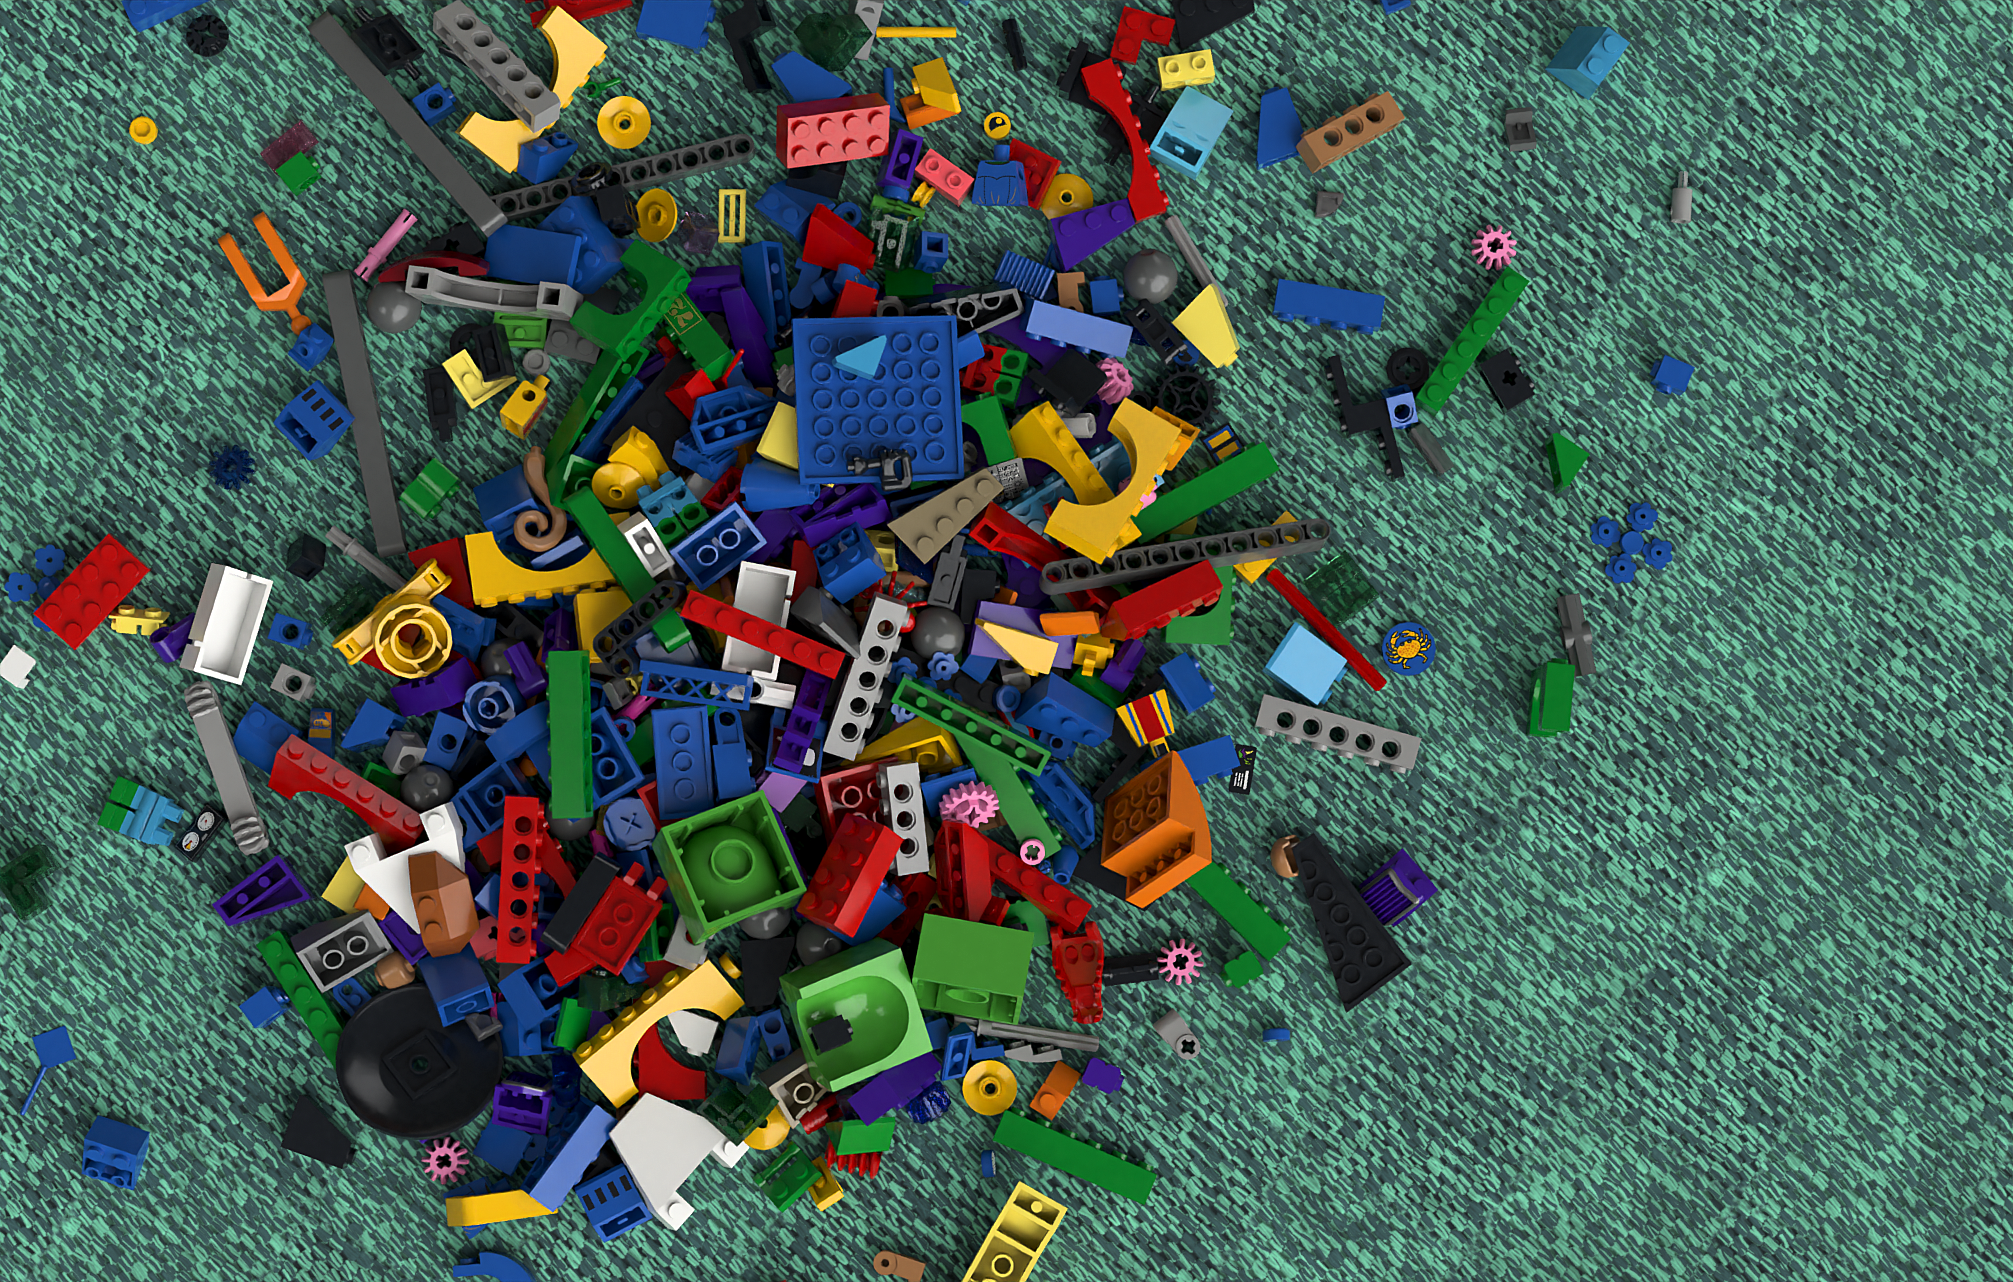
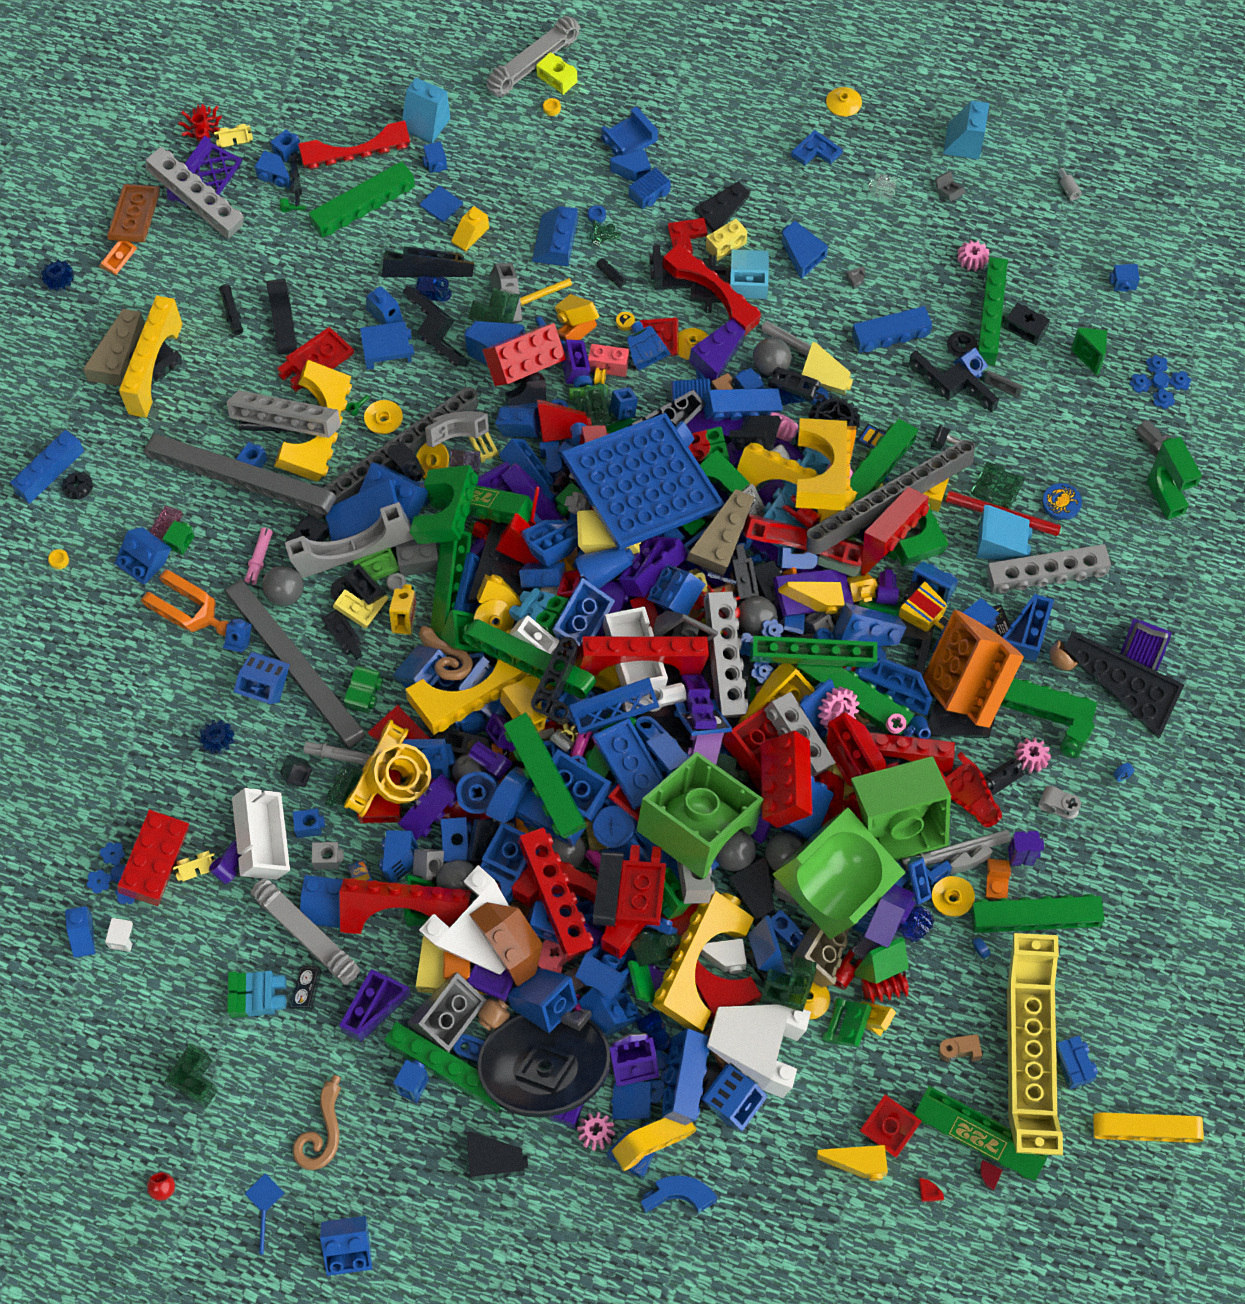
camera: 25 degrees left, 20 degrees down
(165, 980) = (327, 1102): none -> medium nougat plant
(245, 176) = (142, 554): none -> blue slope
(387, 43) = (202, 435): black plate -> none
(467, 264) = (321, 535): dark red slope -> none
(545, 156) = (341, 456): blue slope -> none
(592, 176) = (380, 447): black gear -> none
(703, 182) = (456, 424): none -> light grey arch
(830, 1034) = (830, 892): black brick -> none
(862, 359) = (620, 455): dark azure slope -> none
(885, 462) = (671, 512): black piece -> none
(1023, 580) = (800, 560): none -> leg
(1070, 623) = (841, 566): orange slope -> none
(1265, 803) = (1030, 626): none -> blue wedge
(1308, 487) = (941, 436): none -> black piece
(1319, 154) = (847, 227): medium nougat brick -> none
(1433, 87) = (883, 187): none -> clear brick

